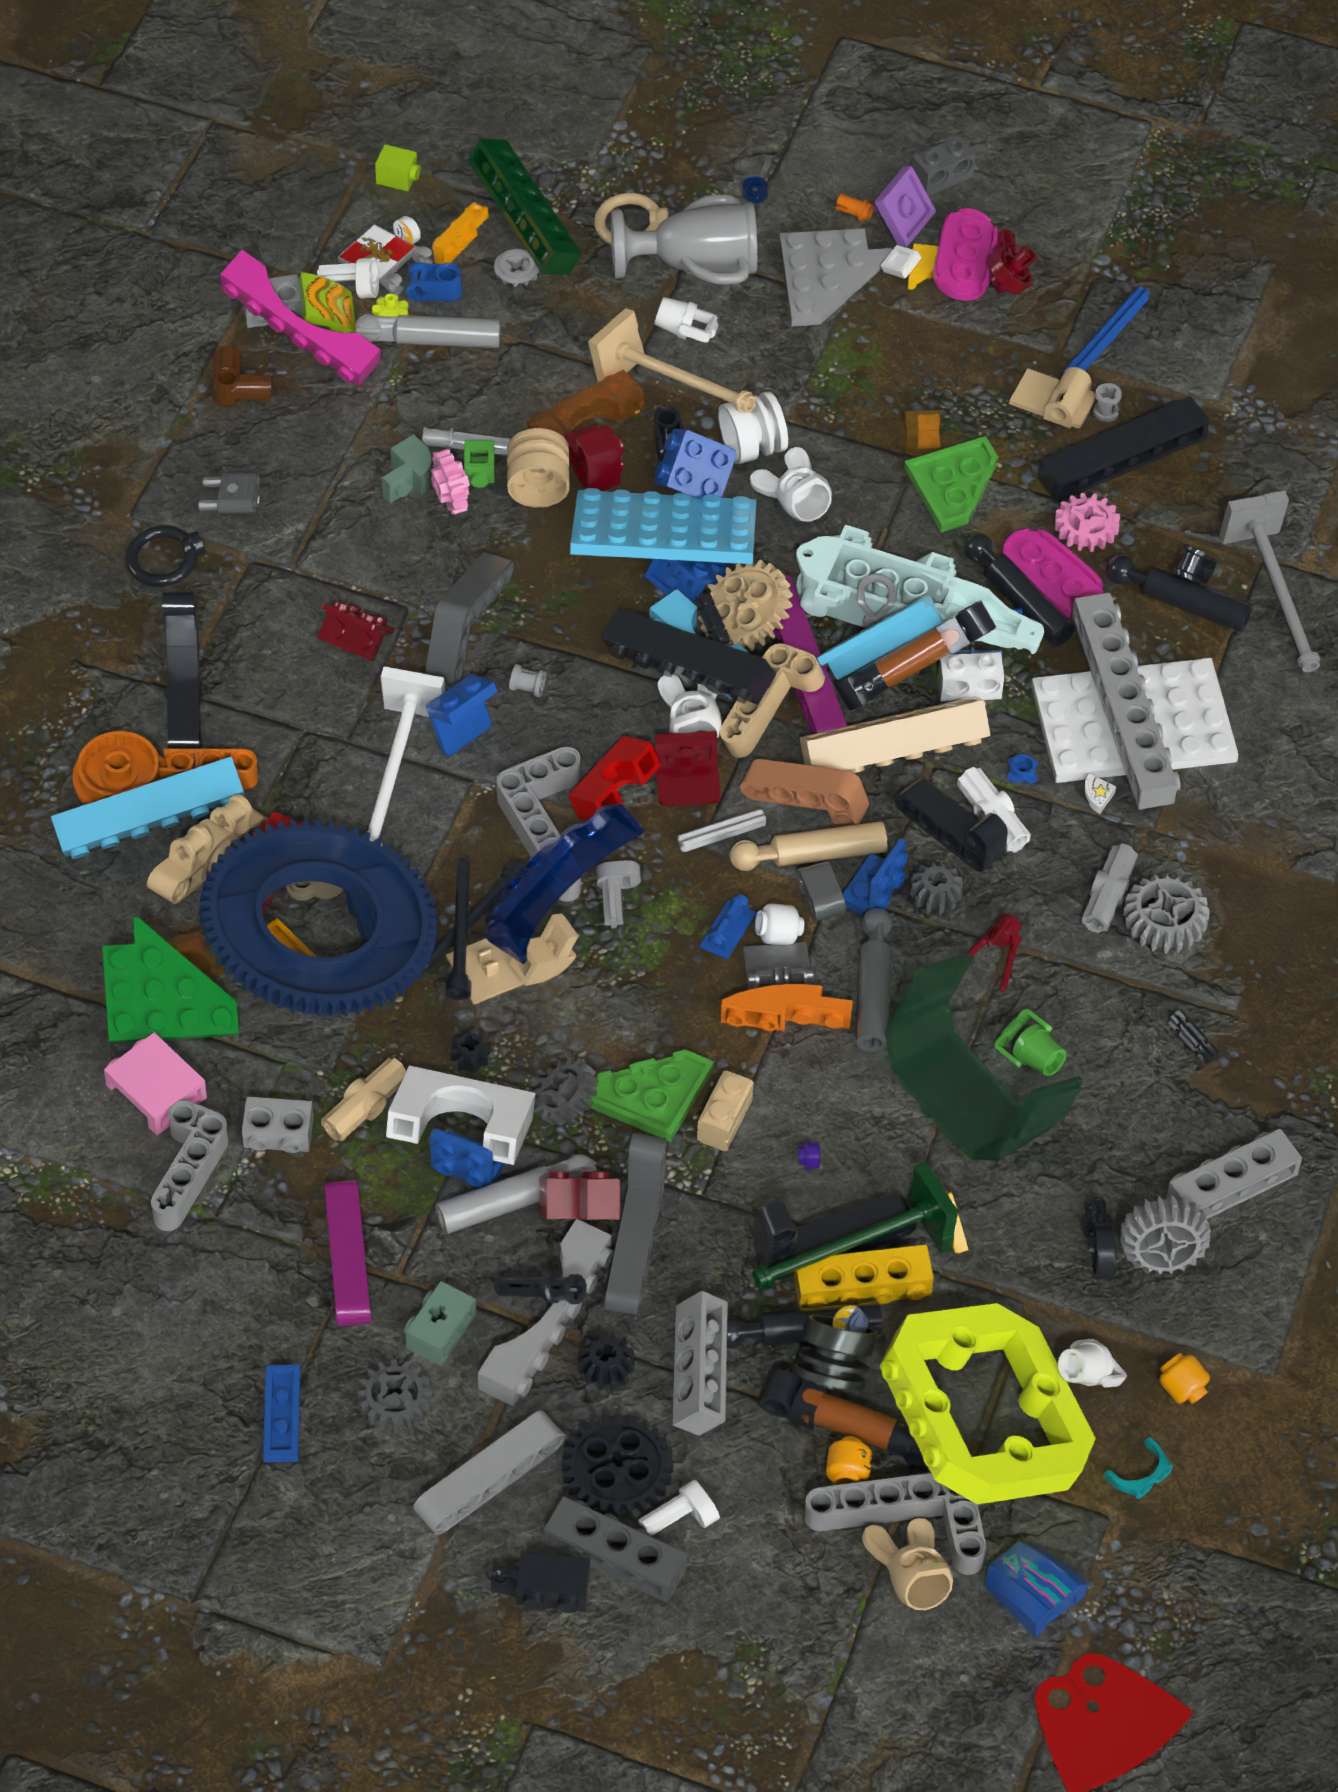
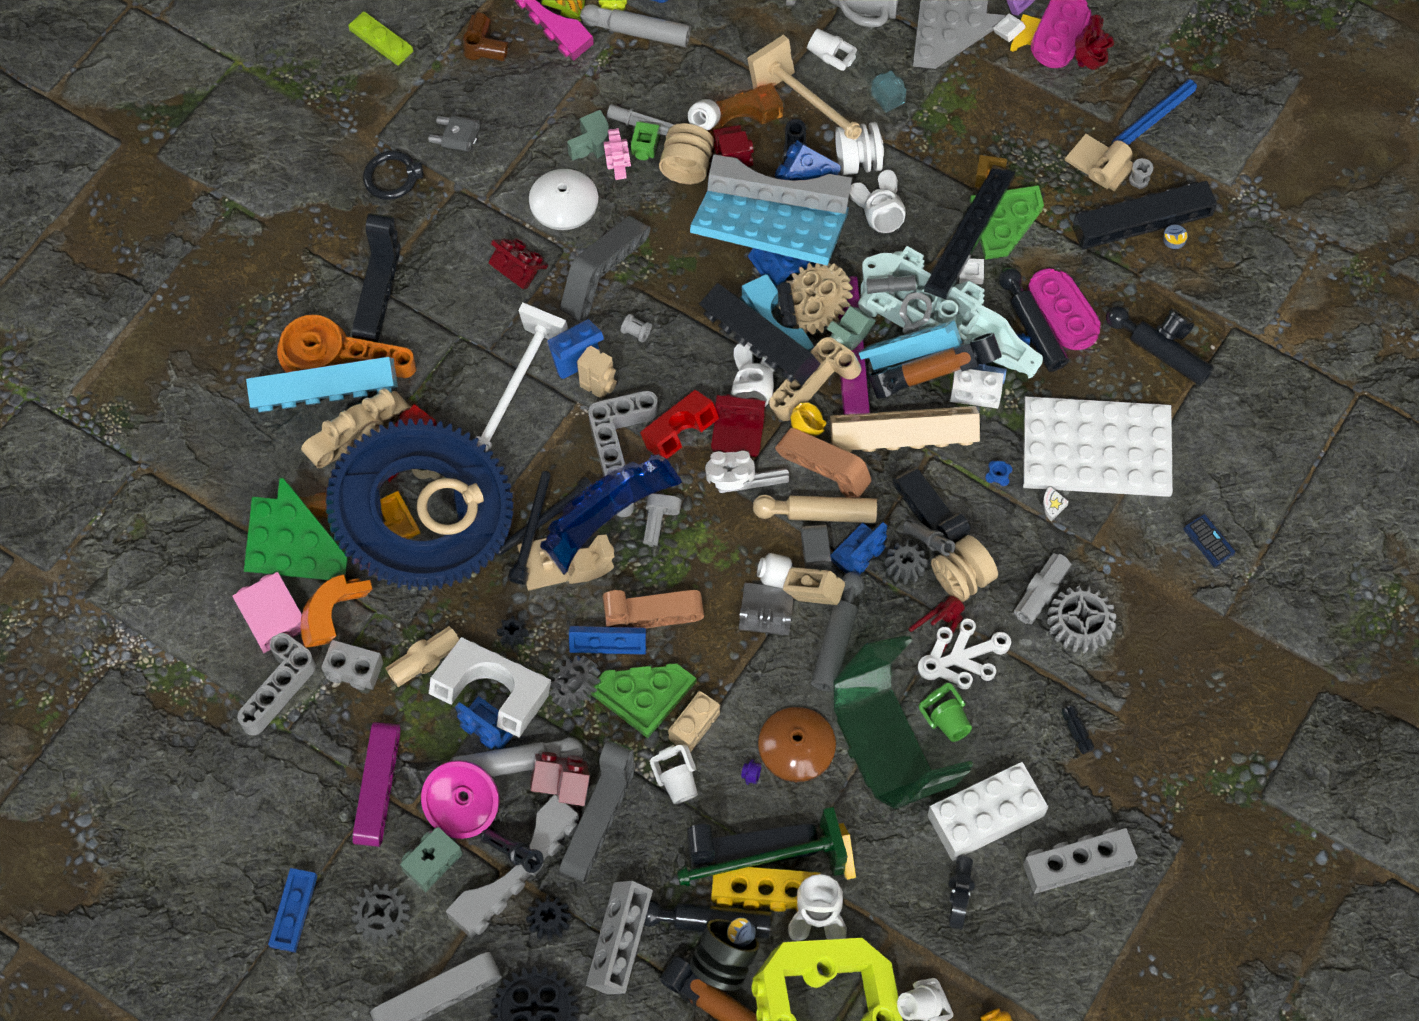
camera: 15 degrees right, 10 degrees up
(101, 398) = (380, 38): none -> lime plate
(221, 1070) = (316, 616): none -> orange arch
(382, 895) = (471, 496): none -> tan piece
(391, 549) = (567, 208): none -> white dish
(435, 1238) = (446, 807): none -> dark pink dish
(495, 736) = (596, 372): none -> tan brick
(540, 414) = (704, 114): none -> white head
(591, 1039) = (607, 640): none -> blue plate
(612, 484) = (822, 193): none -> light grey arch
(636, 997) = (653, 609): none -> nougat beam
(691, 820) = (719, 465): none -> white plate
(722, 1176) = (678, 780): none -> white piece
(728, 927) = (737, 565): blue hinge -> none
(770, 358) = (888, 91): none -> clear light blue brick
(771, 745) = (807, 419): none -> yellow hair
(775, 1004) = (753, 639): orange slope -> none
(802, 628) = (852, 328): none -> sand green brick
(832, 929) = (814, 586): none -> tan brick
(839, 569) = (891, 284): none -> dark grey pin
(852, 1129) = (794, 759): none -> dark orange dish
(917, 498) = (969, 232): none -> black tile
(927, 542) = (973, 271): none -> white plate
(936, 1273) = (818, 905): none -> white piece
(966, 850) = (932, 538): none -> dark grey pin
(988, 800) = (967, 502): white piece -> none
(1011, 877) = (965, 568): none -> tan wheel
(1032, 982) = (961, 656): none -> white plant
(1087, 522) = (1100, 272): bright pink gear -> none
(1108, 1143) = (987, 811): none -> white brick
(1125, 701) = (1091, 510): light grey brick -> none
(1167, 468) = (1175, 236): none -> tile
(1185, 1233) = (1010, 905): light grey gear -> none
(1256, 519) = (1235, 295): light grey tile -> none
(1296, 801) = (1209, 540): none -> tile

